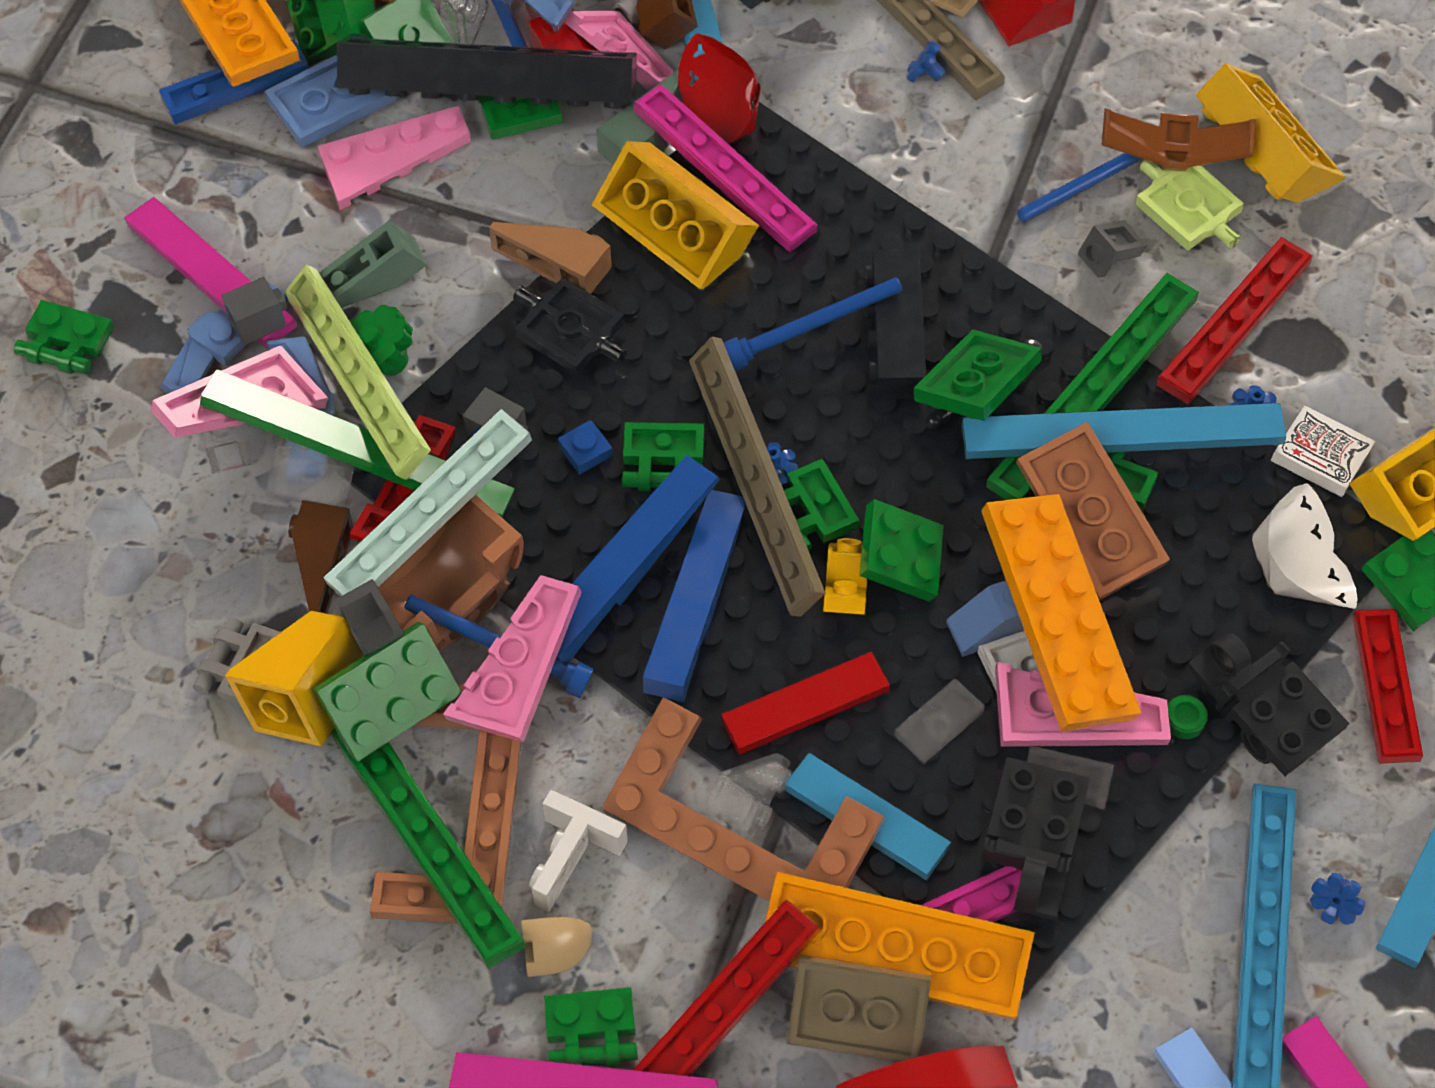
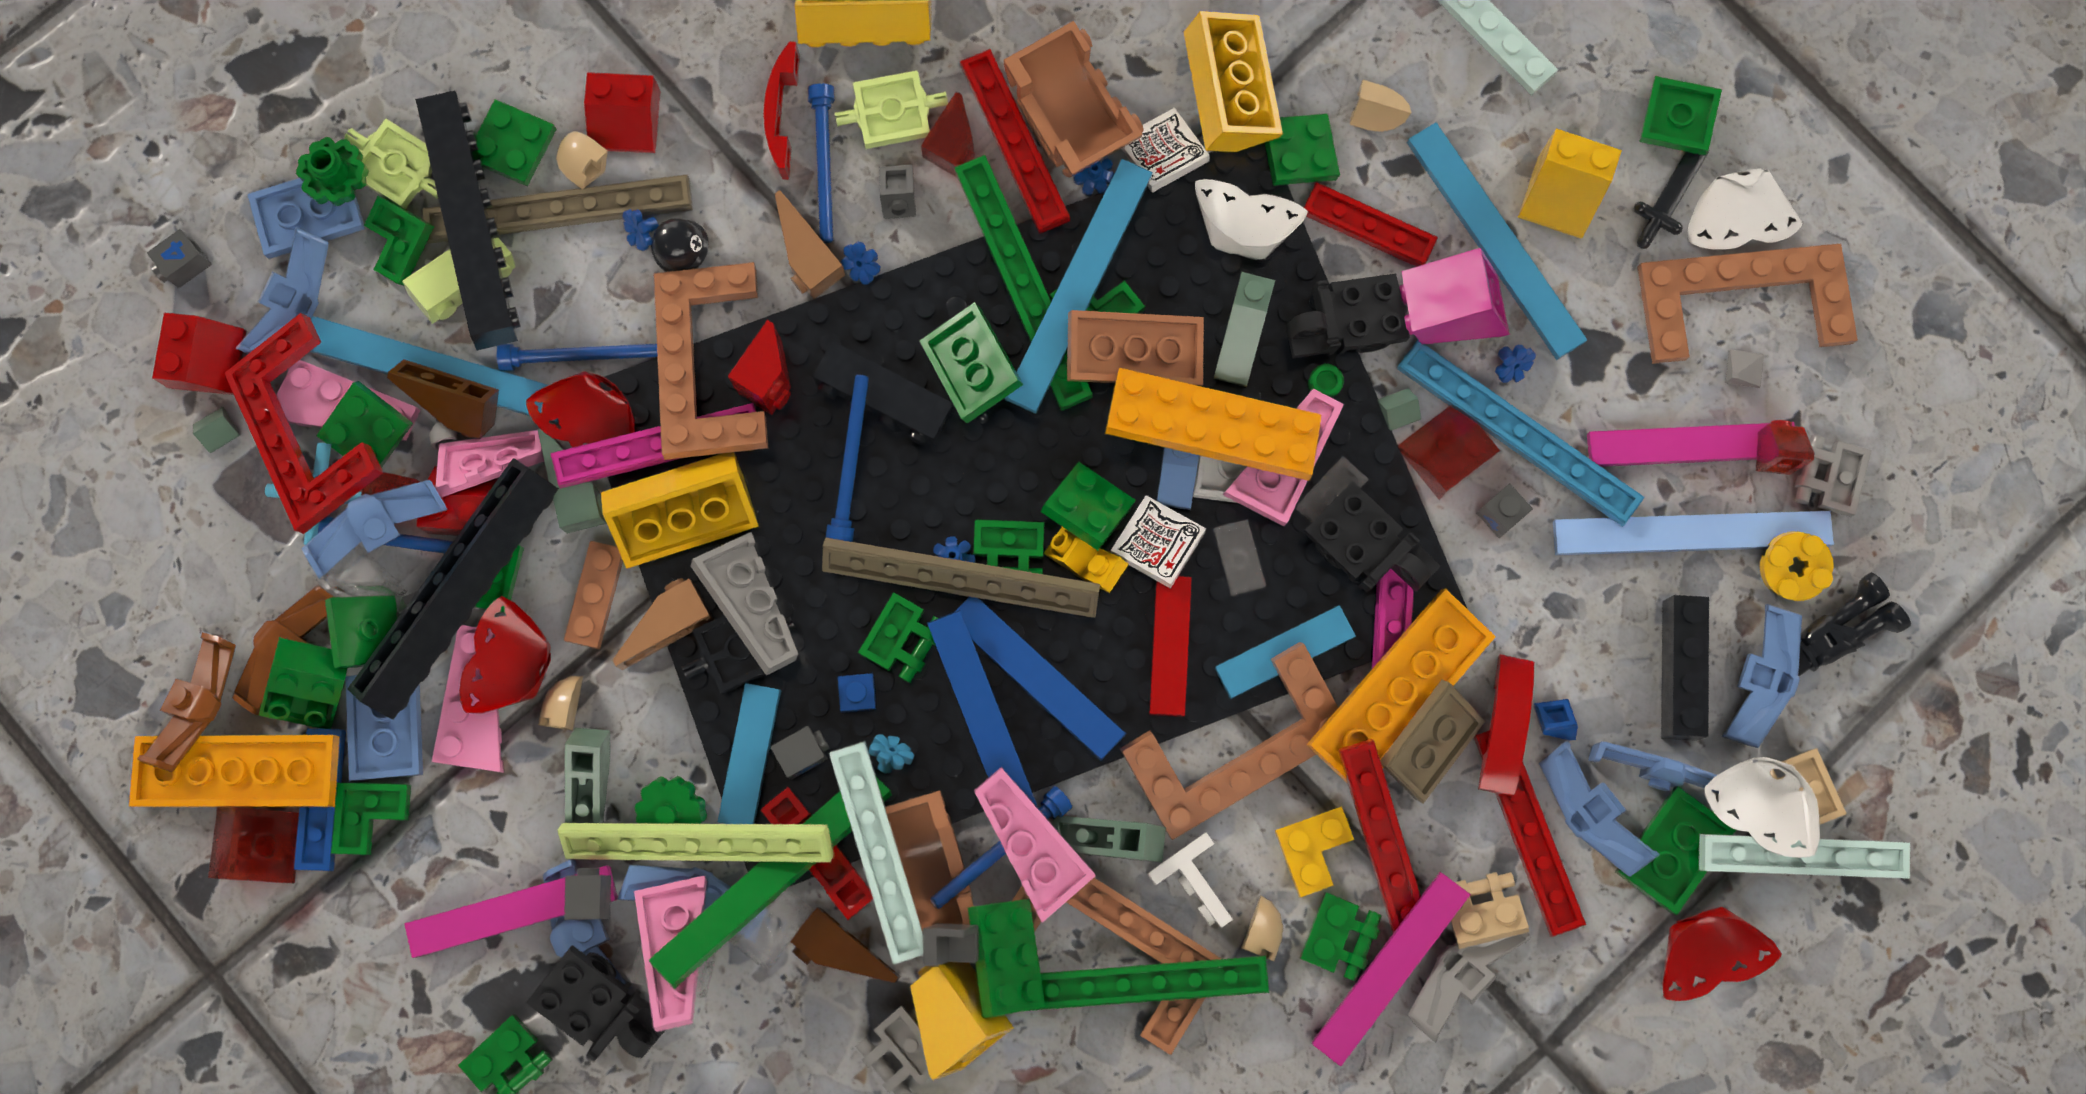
camera: 60 degrees left, 20 degrees up
(152, 360) = (594, 1005): none -> black plate
(164, 51) = (254, 845): none -> clear red slope
(240, 112) = (359, 806): none -> green plate
(432, 220) = (561, 704): none -> tan brick
(445, 159) = (506, 662): none -> red piece
(461, 387) = (749, 755): none -> dark azure tile
(540, 499) = (890, 753): none -> dark azure plant
(548, 197) = (594, 595): none -> nougat plate
(570, 747) = (1113, 838): none -> sand green slope
(620, 299) = (741, 590): none -> light grey wing
(669, 944) = (1303, 848): none -> yellow plate
(736, 27) = (511, 357): none -> blue piece
(745, 792) = (1223, 731): clear slope -> none
(752, 173) = (680, 429): none -> nougat plate
(855, 208) = (763, 372): none -> red slope
(907, 635) = (1158, 541): none -> white tile
(931, 100) = (679, 245): none -> black helmet
(995, 199) = (809, 258): none -> medium nougat slope
(1019, 249) = (860, 262): none -> blue plant
(1132, 102) = (783, 73): none -> red slope
(1164, 964) = (1504, 510): none -> dark grey brick
(1177, 140) = (840, 85): dark orange plate -> none
(1188, 606) = (1244, 329): none -> sand green slope
(1191, 881) = (1448, 450): none -> clear red slope
(1201, 259) = (950, 138): none -> clear red slope
(1206, 810) = (1400, 408): none -> sand green slope
(1310, 331) = (1069, 101): none -> nougat cylinder
(1365, 799) = (1454, 299): none -> slope

